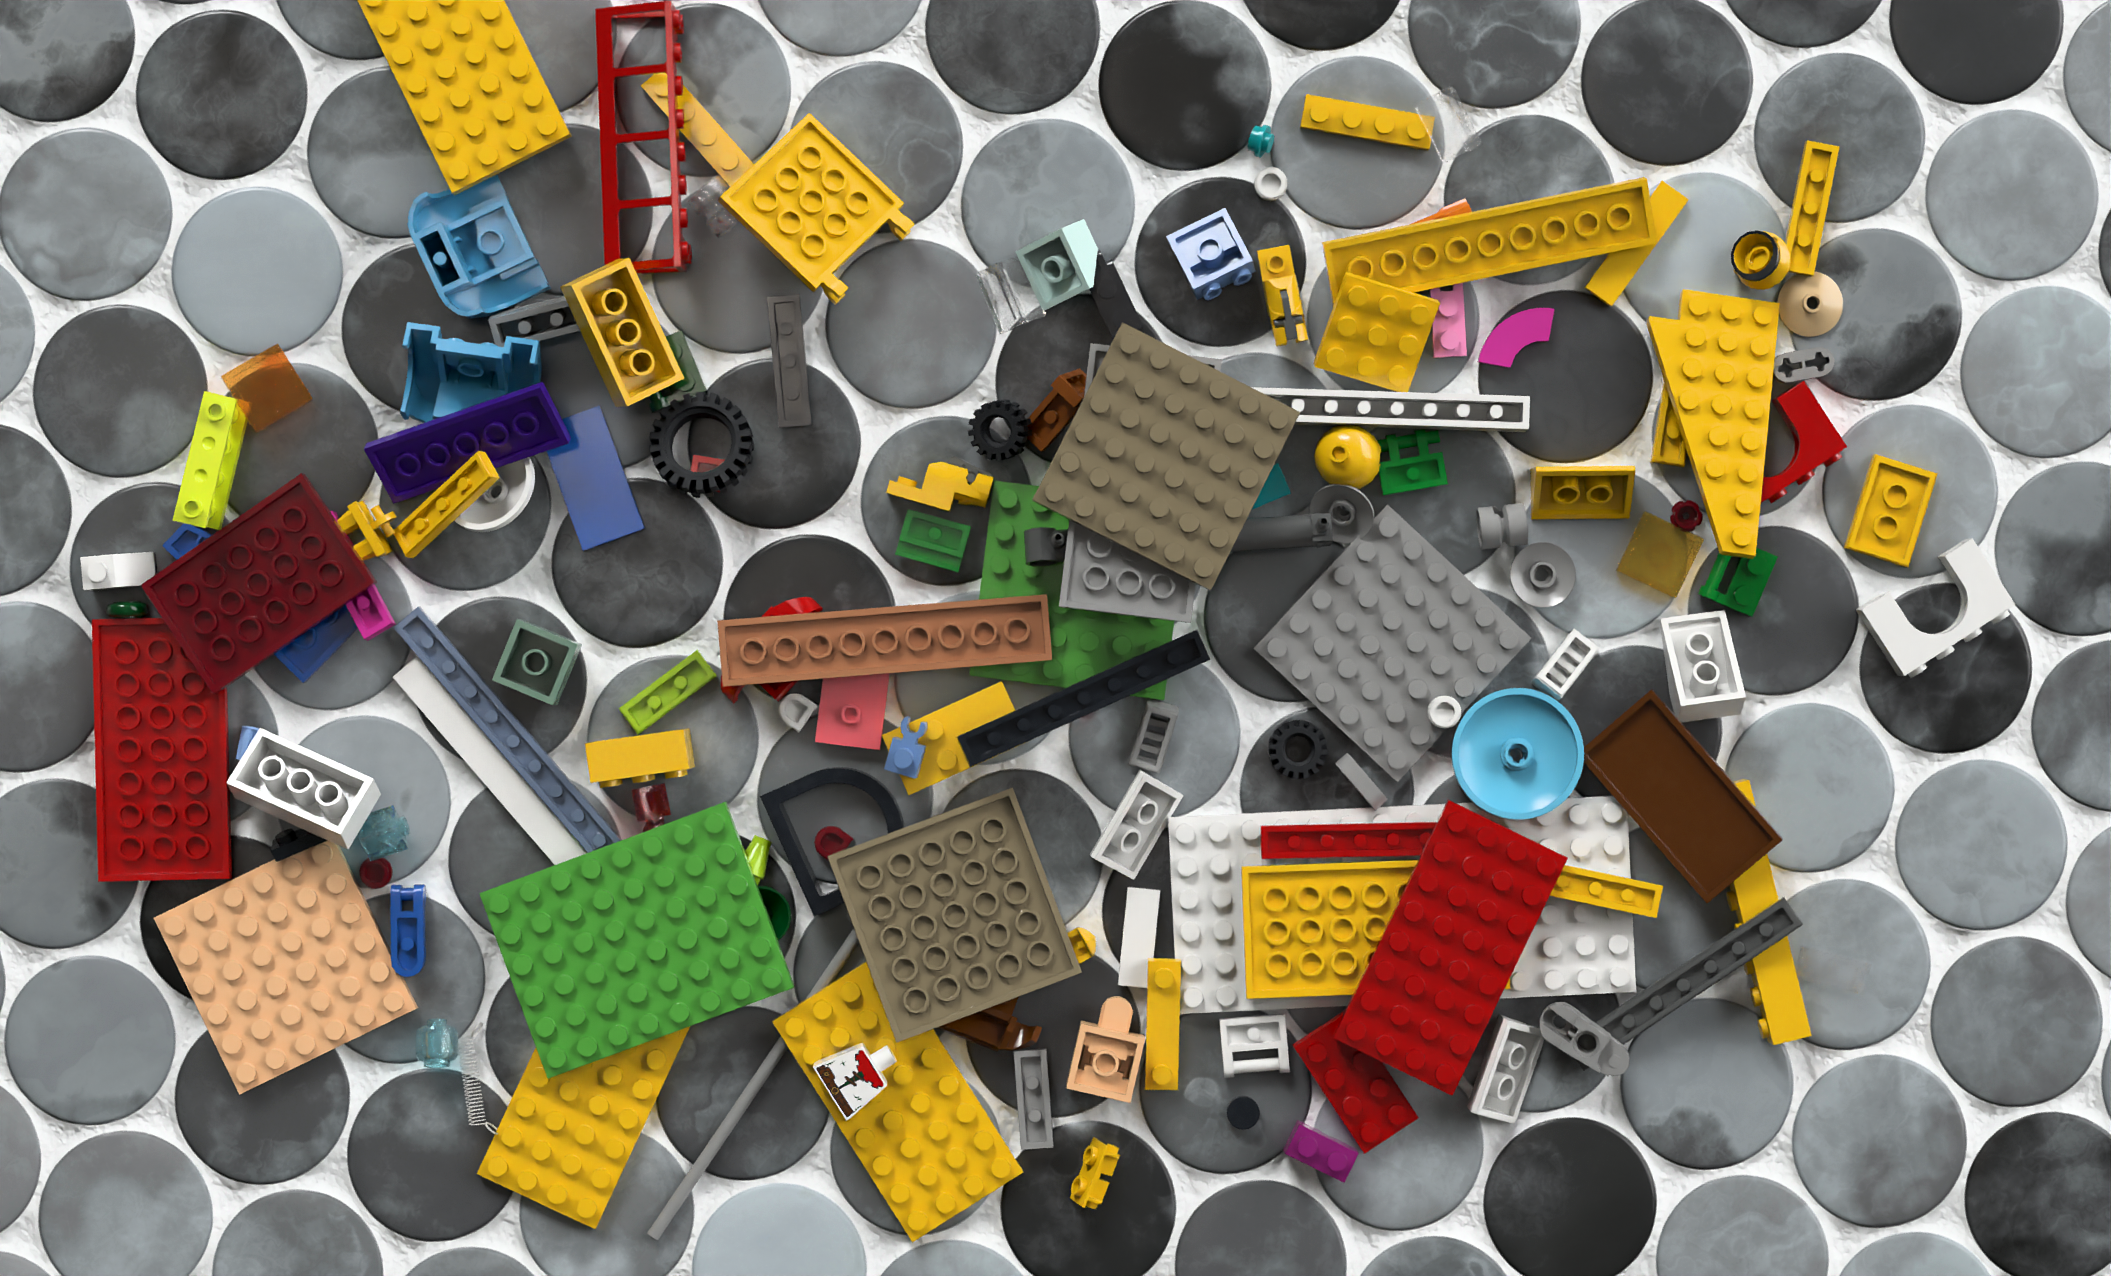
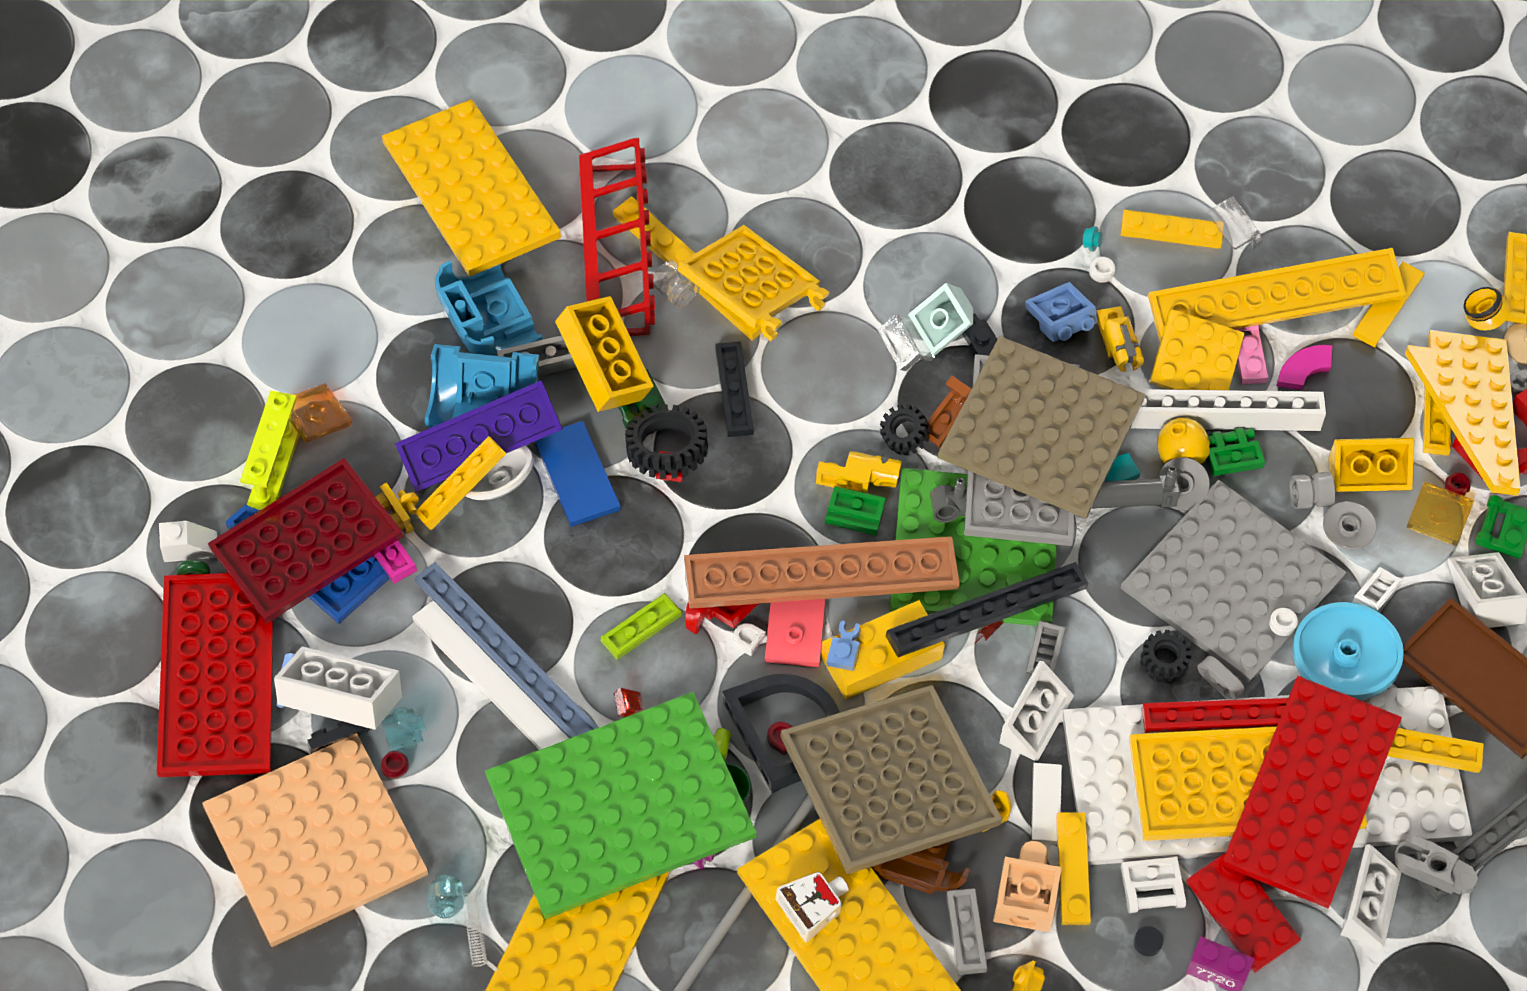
camera: 10 degrees left, 30 degrees down
(408, 930) = (421, 809): blue plate -> none
(537, 662) = (533, 597): sand green brick -> none
(640, 757) = (621, 662): yellow brick -> none

